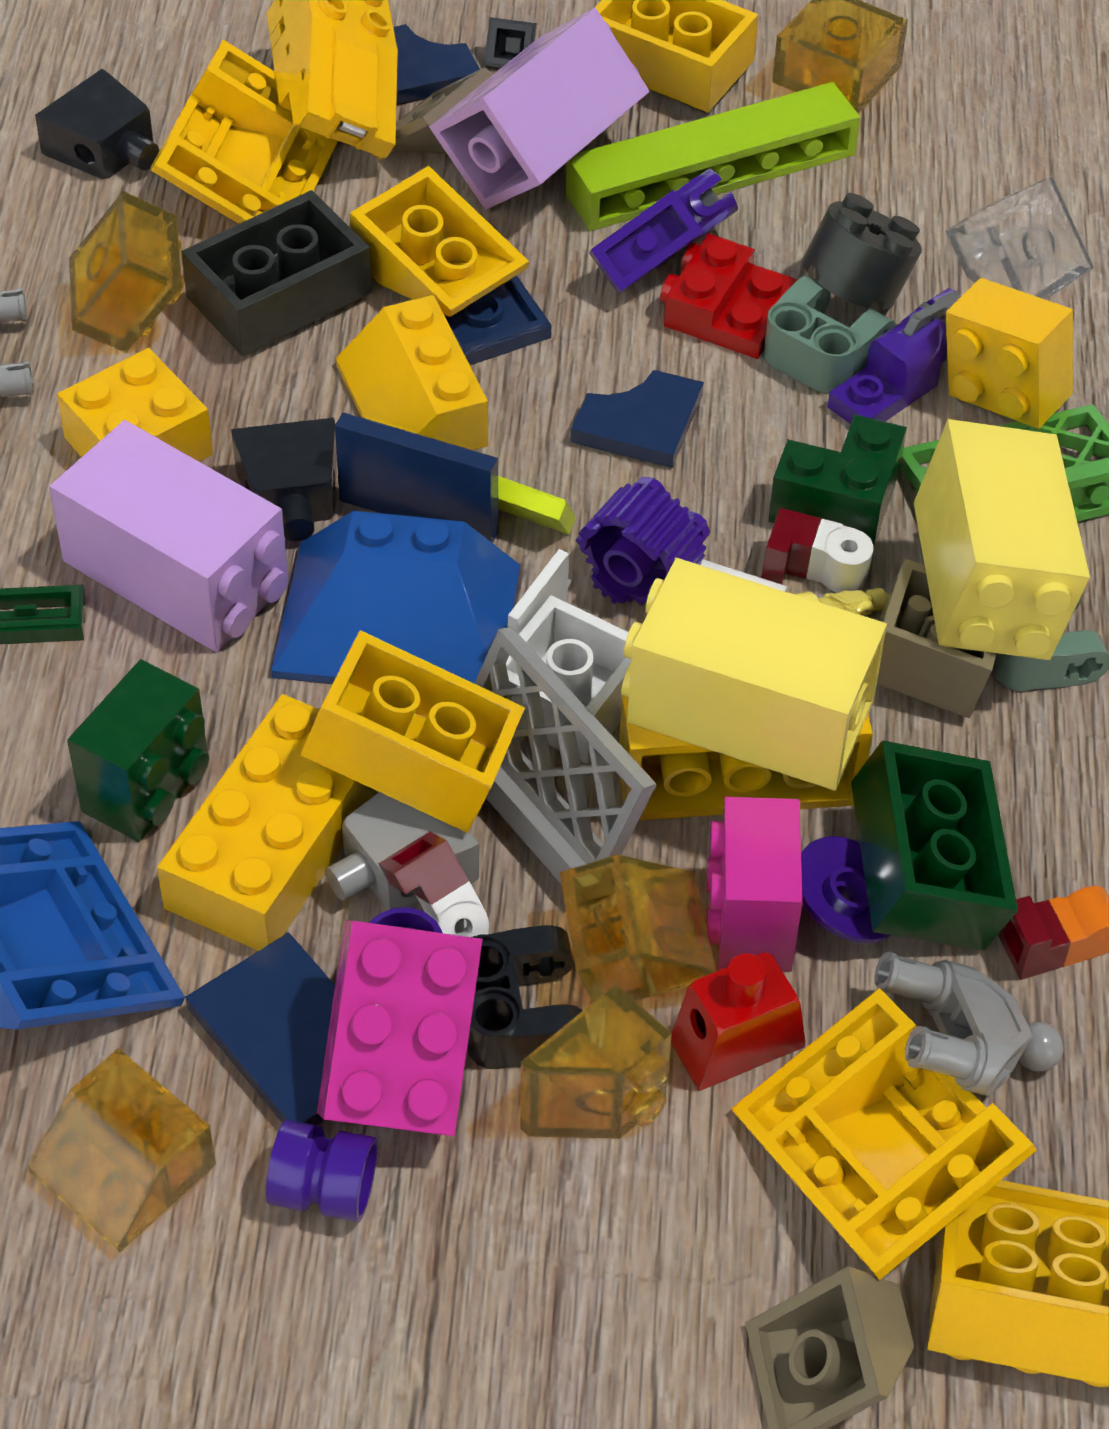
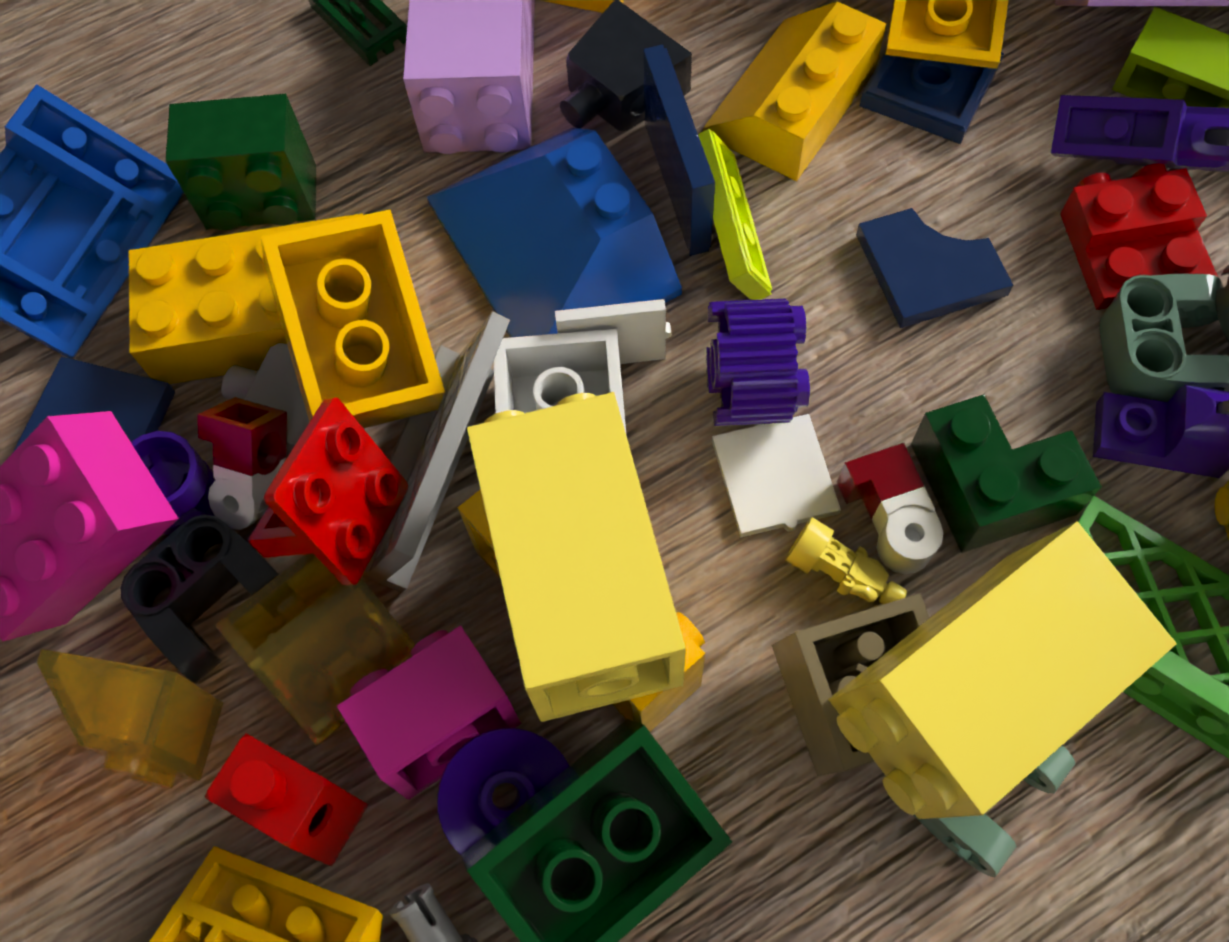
camera: 60 degrees right, 15 degrees up
(543, 825) = (331, 496): none -> red bracket

